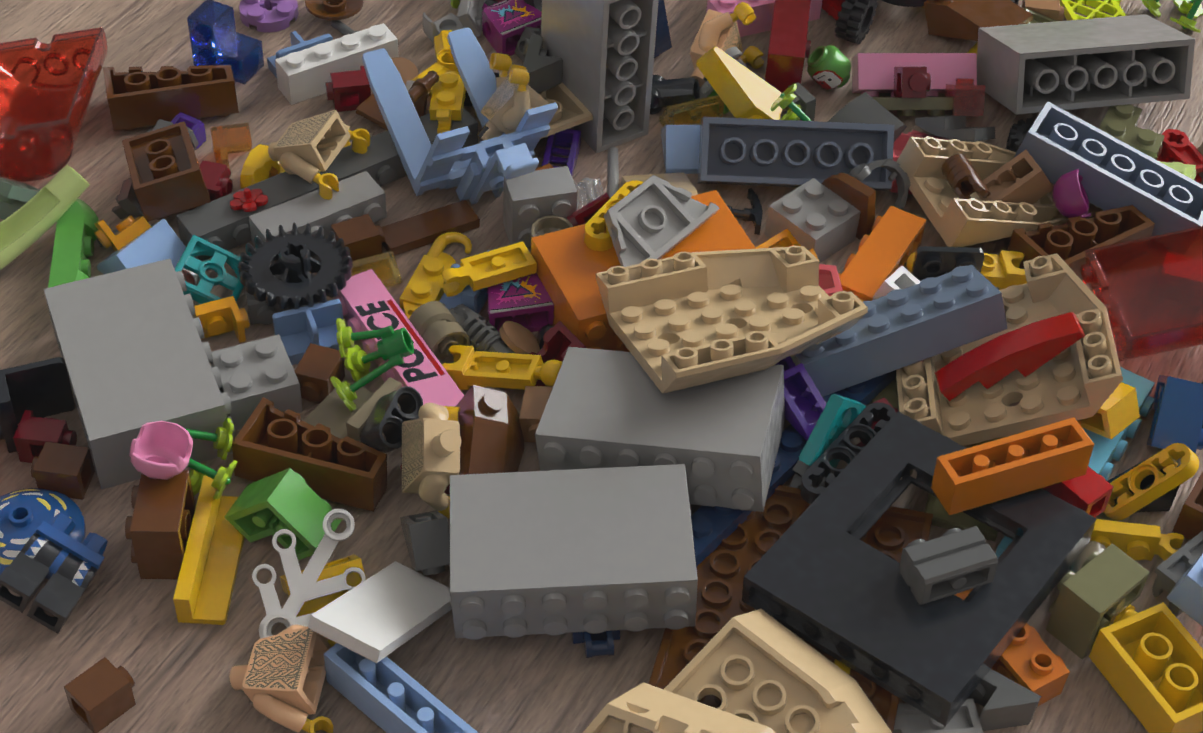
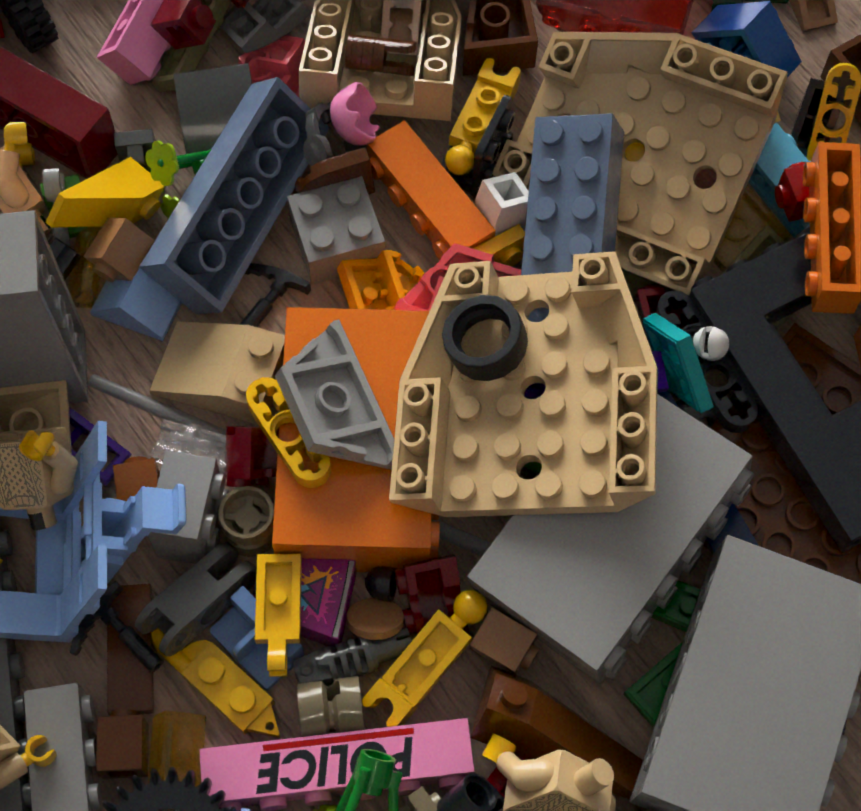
camera: 65 degrees left, 20 degrees up
(444, 200) = (127, 634): none -> black piece
(472, 232) = (196, 598): none -> dark grey piece
(705, 105) = (118, 250): none -> medium nougat brick
(754, 278) = (477, 310): none -> black tyre
(829, 67) = (99, 82): bright green head -> none
(857, 434) = (717, 343): none -> white hinge
(905, 185) = (351, 114): none -> bright pink hair
(1018, 349) = (669, 149): red slope -> none

